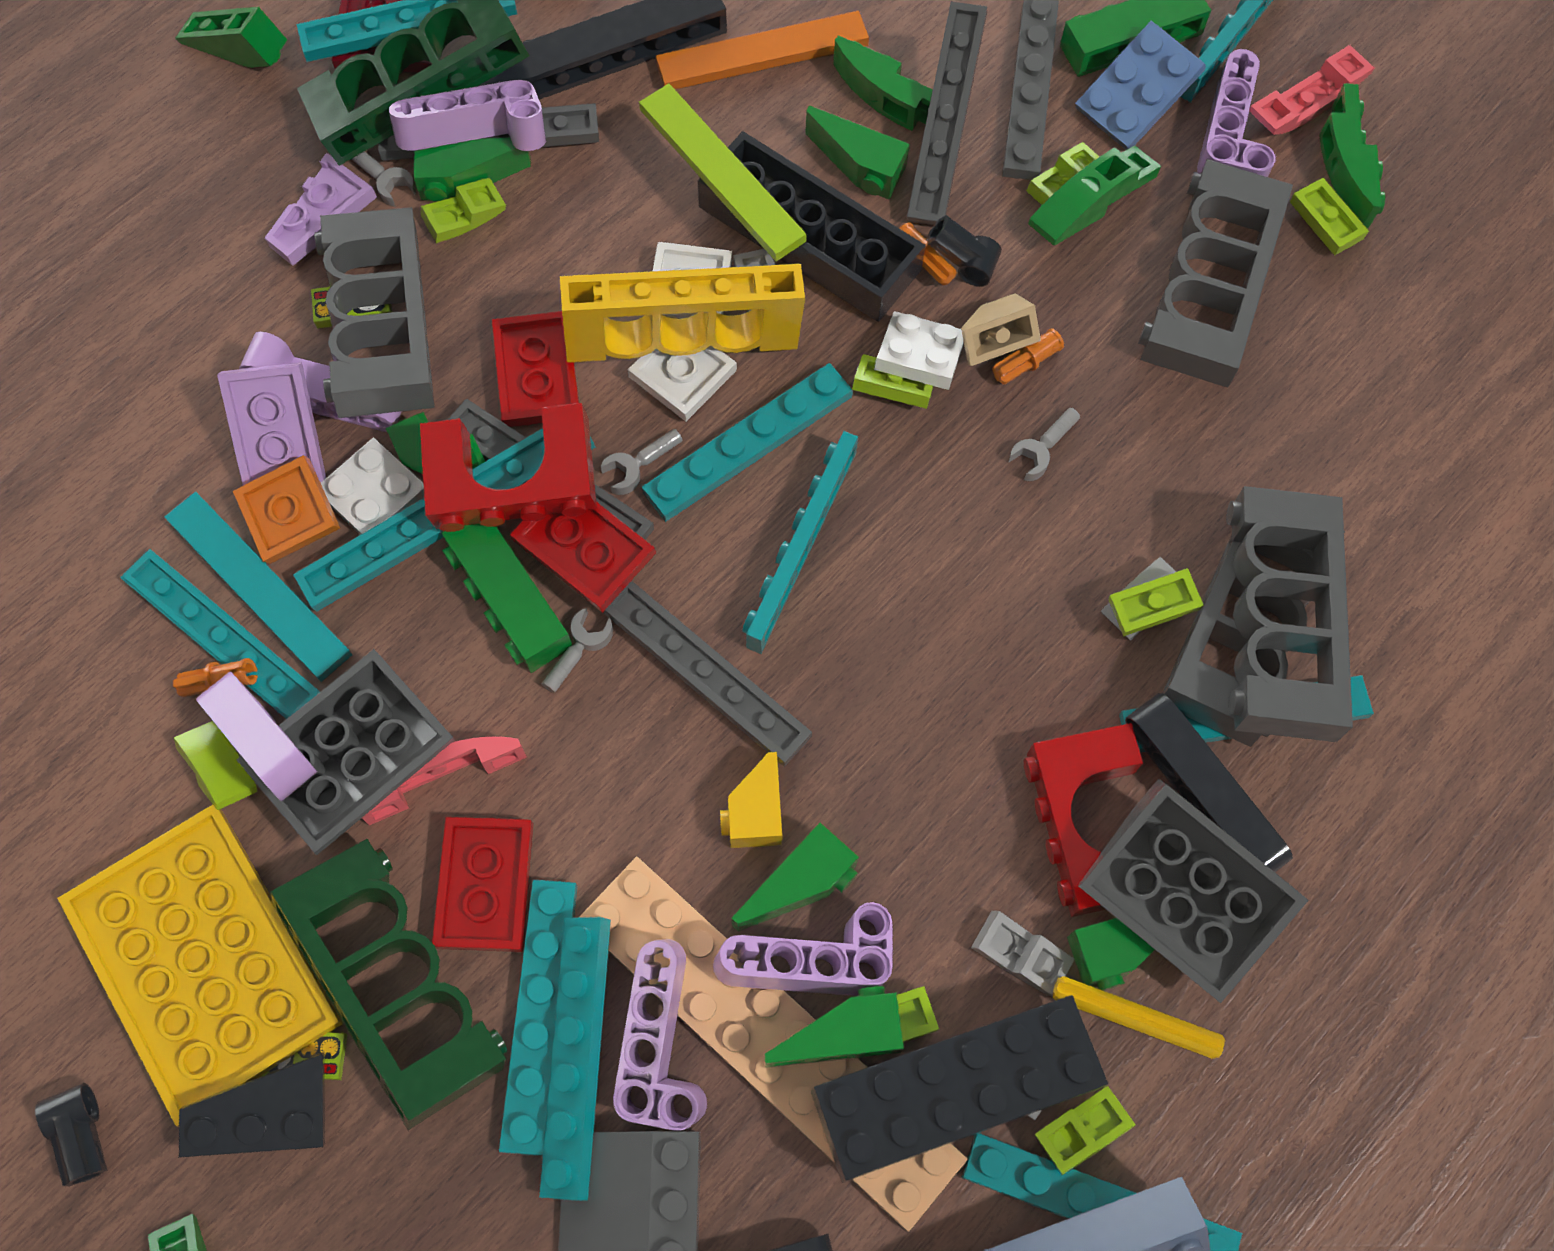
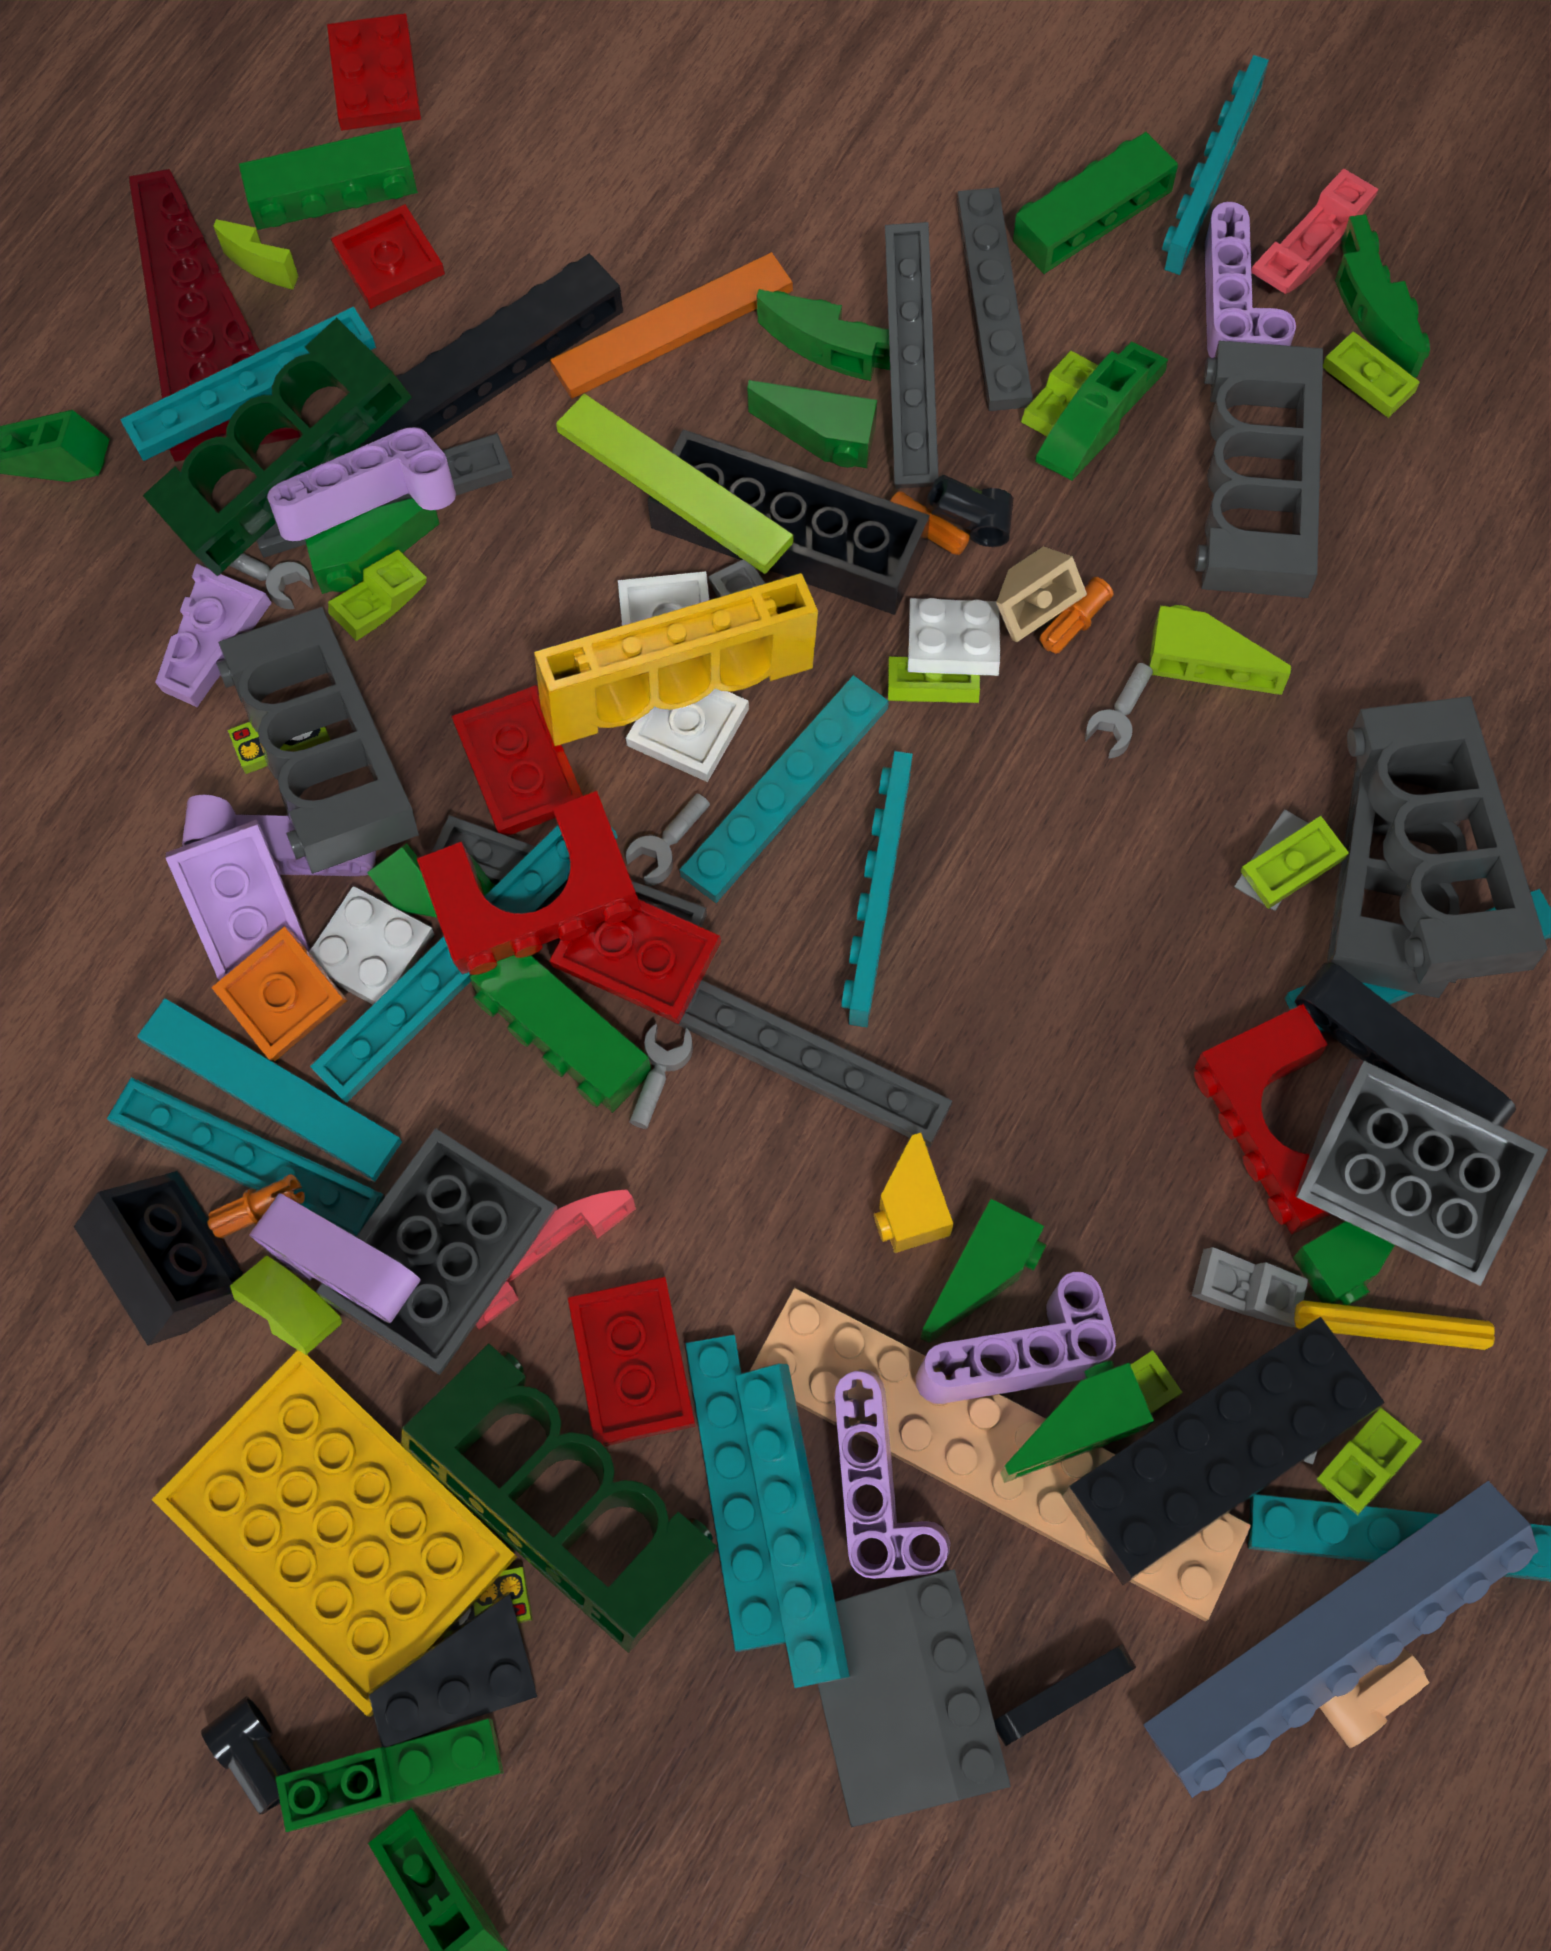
camera: 10 degrees left, 0 degrees up
(126, 698) = (159, 1255): none -> black slope
(177, 1182) = (389, 1775): none -> green slope
(1131, 411) = (1204, 650): none -> lime slope
(1140, 85) = (1120, 271): medium blue plate -> none

